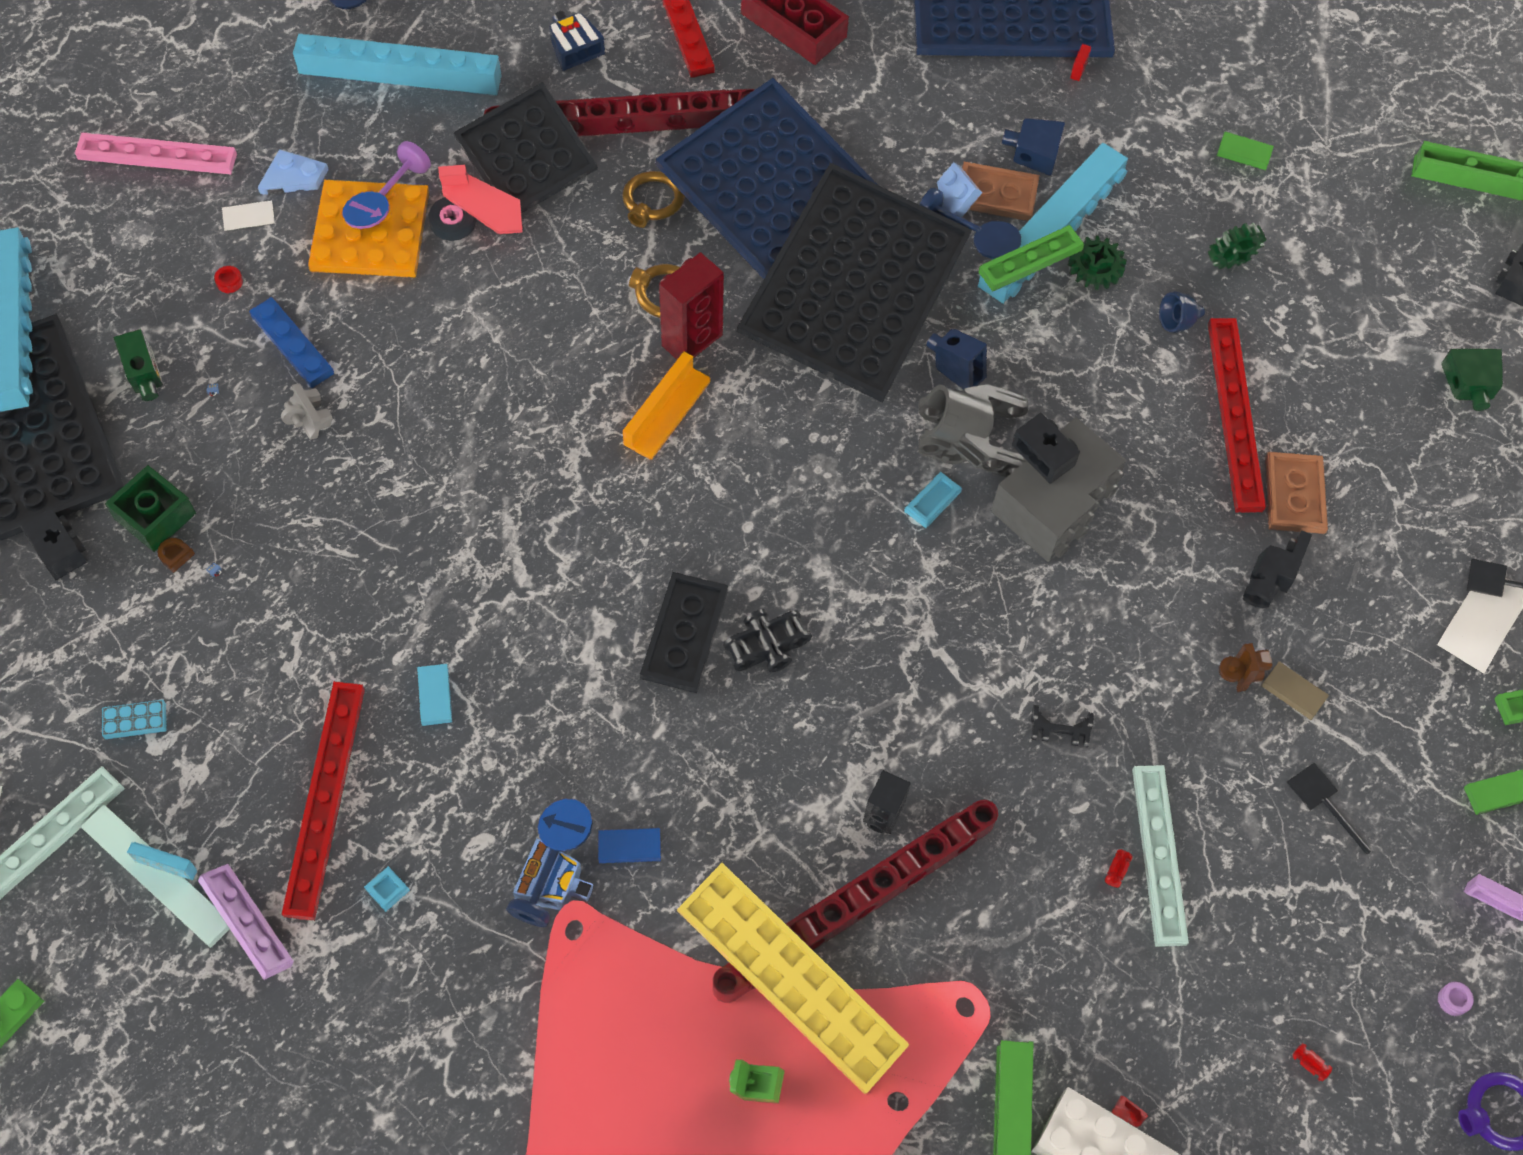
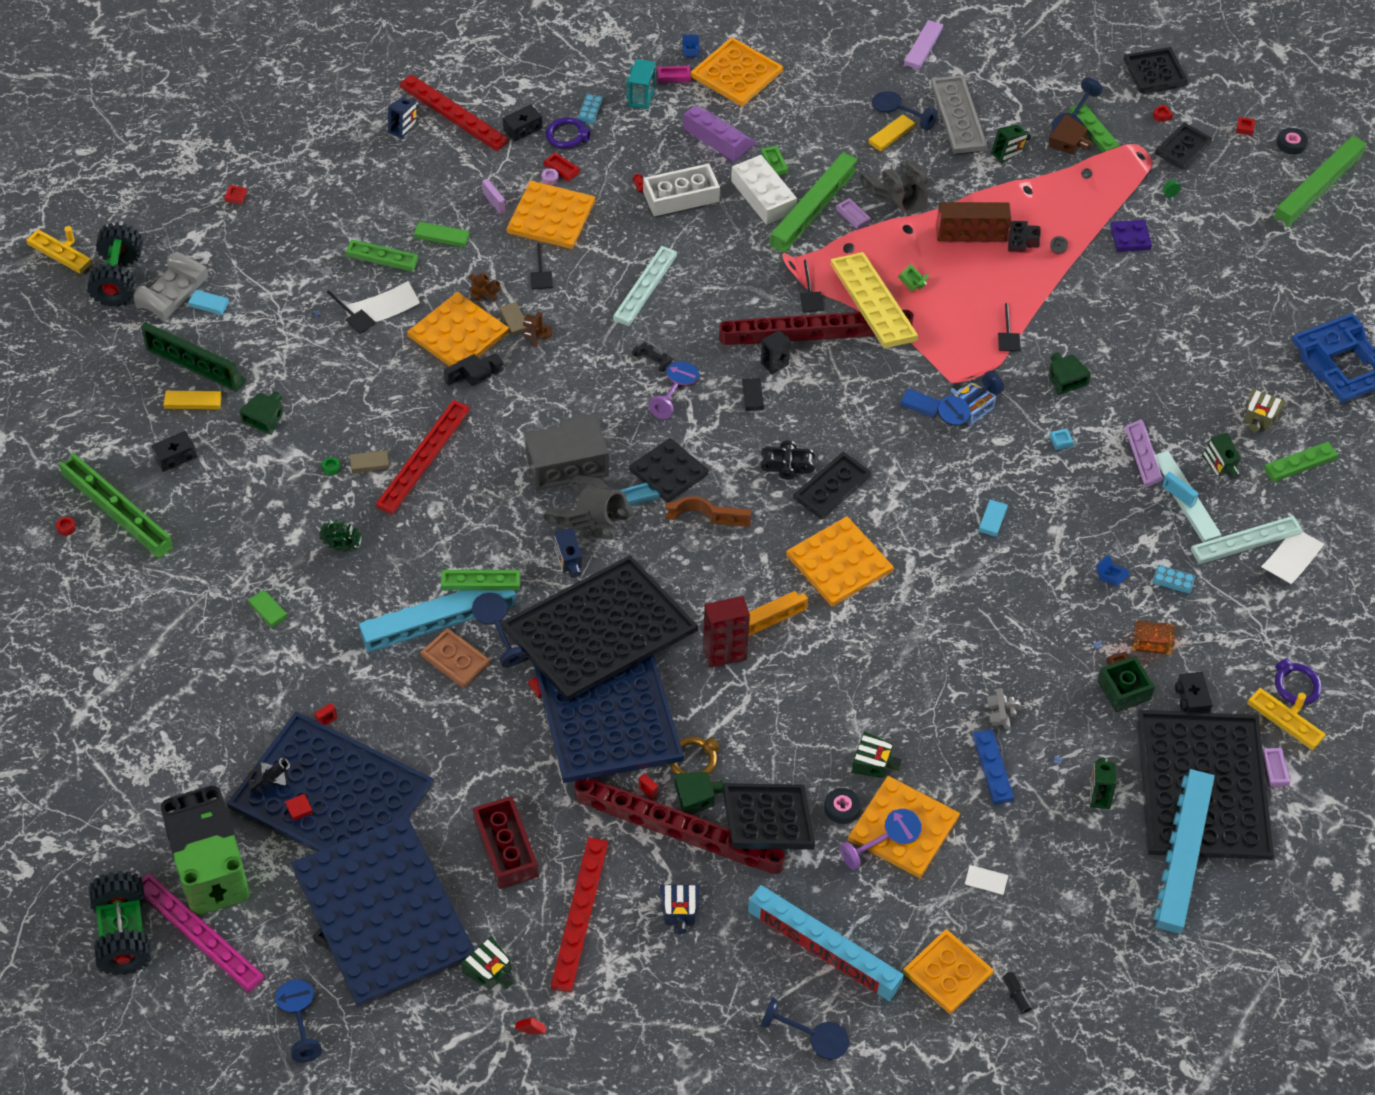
camera: 150 degrees left, 10 degrees down
(69, 1107) = (1262, 410): none -> olive torso
(106, 961) = (1222, 456): none -> dark green torso
(135, 603) = (1153, 637): none -> clear orange brick
(156, 153) = (1038, 953): bright pink plate -> none
(164, 108) = (1017, 992): none -> black axle
(226, 678) = (1111, 573): none -> blue bracket
(228, 279) = (1019, 832): red tile -> none
(250, 96) = (948, 971): none -> light orange plate
(293, 173) = (941, 894): light blue wing -> none
(323, 802) = (1077, 492): red plate -> none
(422, 1017) = (1067, 373): none -> dark green torso
(439, 282) = (874, 757): none -> torso
(482, 201) = (819, 799): coral piece -> none
(545, 1047) = (1008, 341): none -> black piece
(615, 527) = (839, 561): none -> light orange plate
(625, 156) = (696, 791): none -> dark green torso
(640, 281) = (736, 700): pearl gold piece -> none
(677, 134) = (648, 787): none -> red tile
(815, 506) = (716, 514): none -> dark orange piece
(881, 733) = (752, 394): none -> black tile
(898, 961) = (811, 300): none -> black piece
(917, 550) = (668, 470): none -> black plate
(957, 190) = (487, 659): light blue wing -> none
(1000, 716) = (681, 374): none -> piece
(1036, 144) = (405, 671): dark blue torso -> none
(1046, 447) = (570, 450): black brick -> none
(1108, 268) = (430, 576): dark green gear -> none
(1118, 868) = (671, 287): red piece -> none
(1129, 1112) = (742, 201): red tile -> none
(1179, 312) = (407, 521): dark blue helmet -> none
(1234, 1069) = (681, 189): none -> white brick
(1294, 379) = (369, 461): none -> dark tan tile
(1296, 492) = (424, 406): nougat tile -> none
(1333, 352) = (330, 466): none -> green tile
(1350, 630) = (457, 330): none -> light orange plate
(1374, 705) = (482, 288): none -> reddish brown hips
(1394, 919) = (551, 214): none -> light orange plate
(1454, 1031) = (562, 166): none -> red tile

